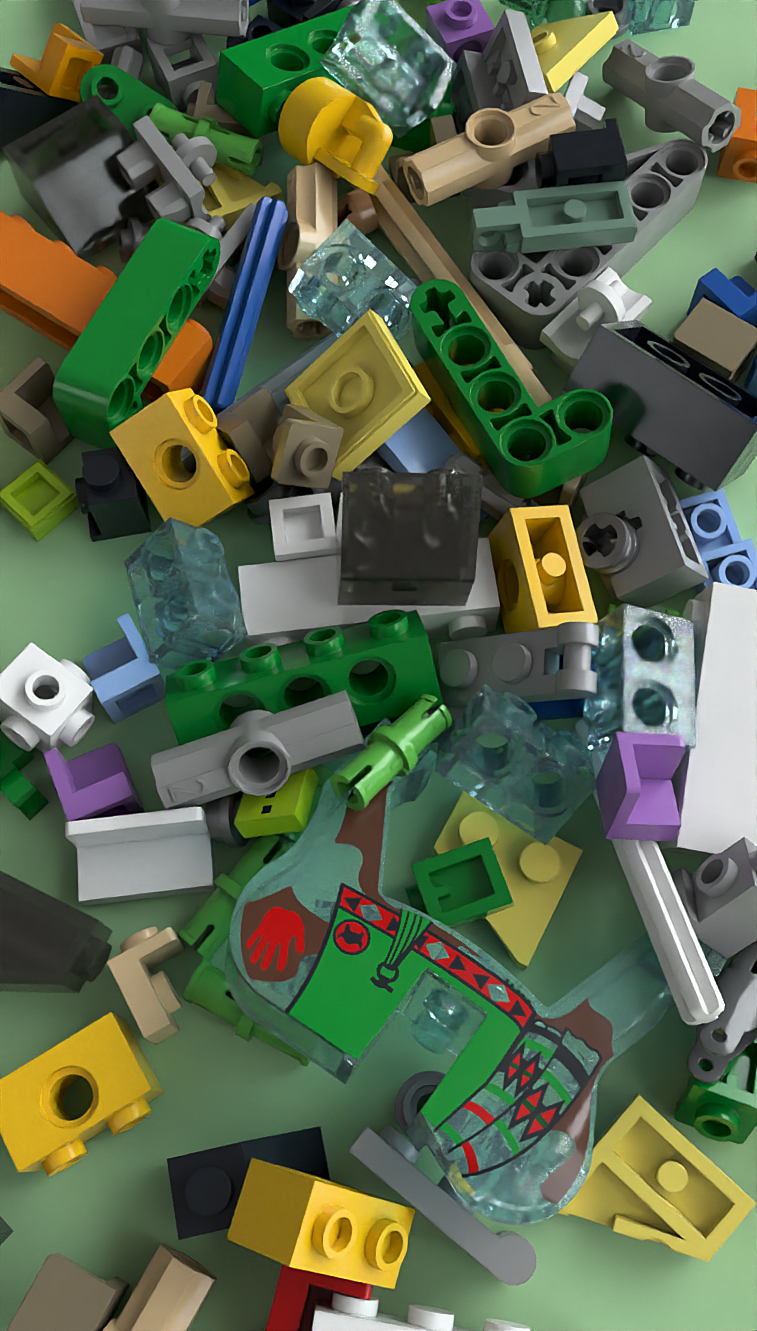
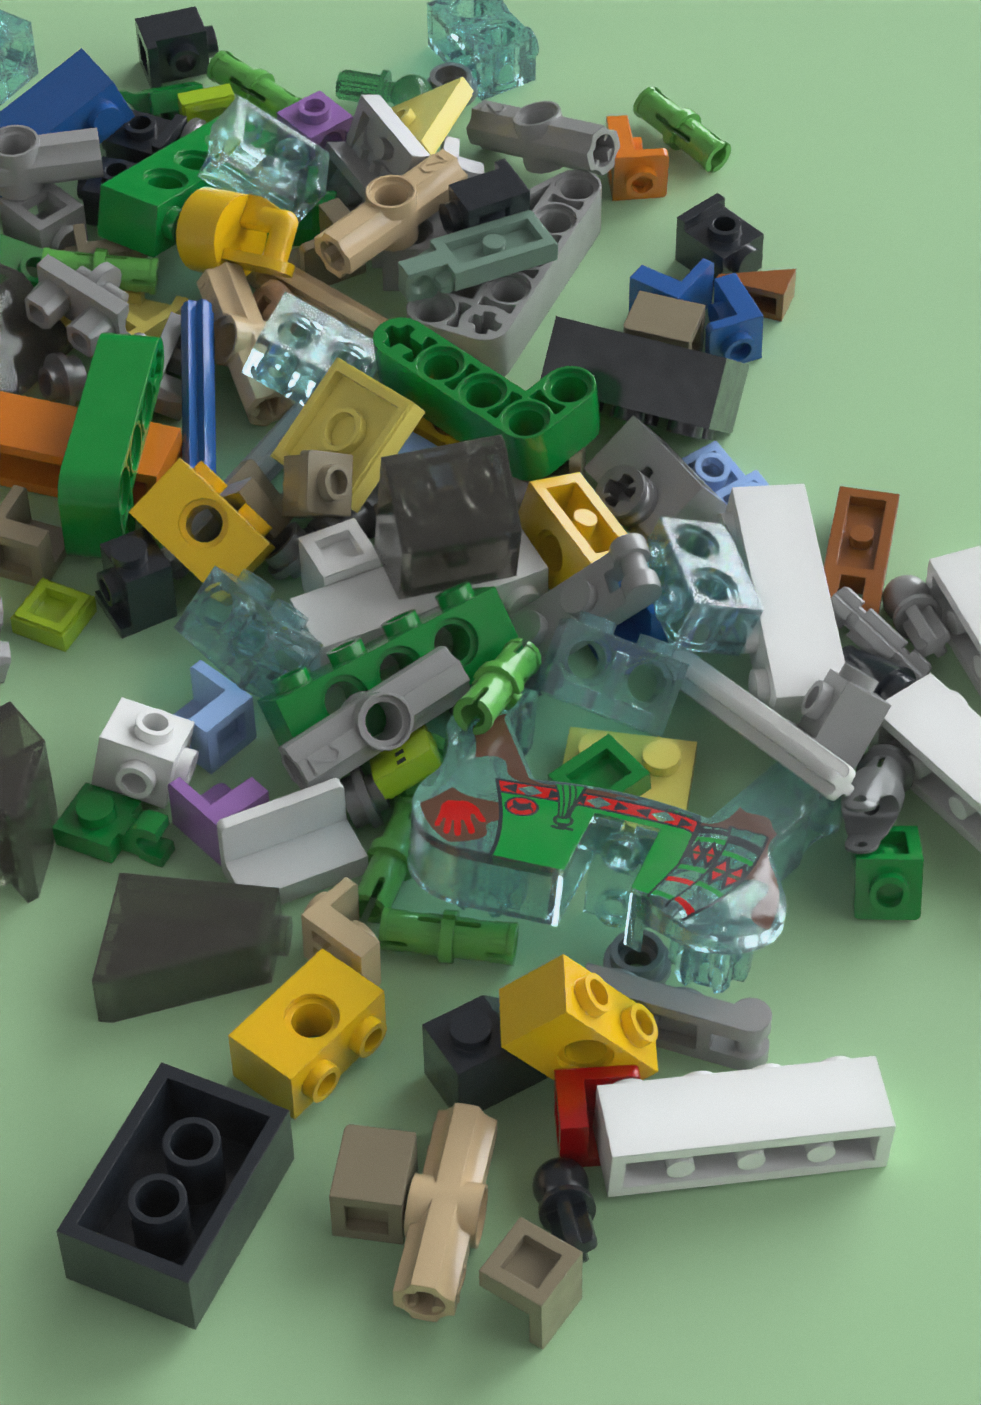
camera: 20 degrees left, 20 degrees down
(597, 303) = (529, 340): white hips -> none
(637, 787) = (722, 651): medium lavender panel -> none
(658, 1186) = (852, 957): light yellow wing -> none

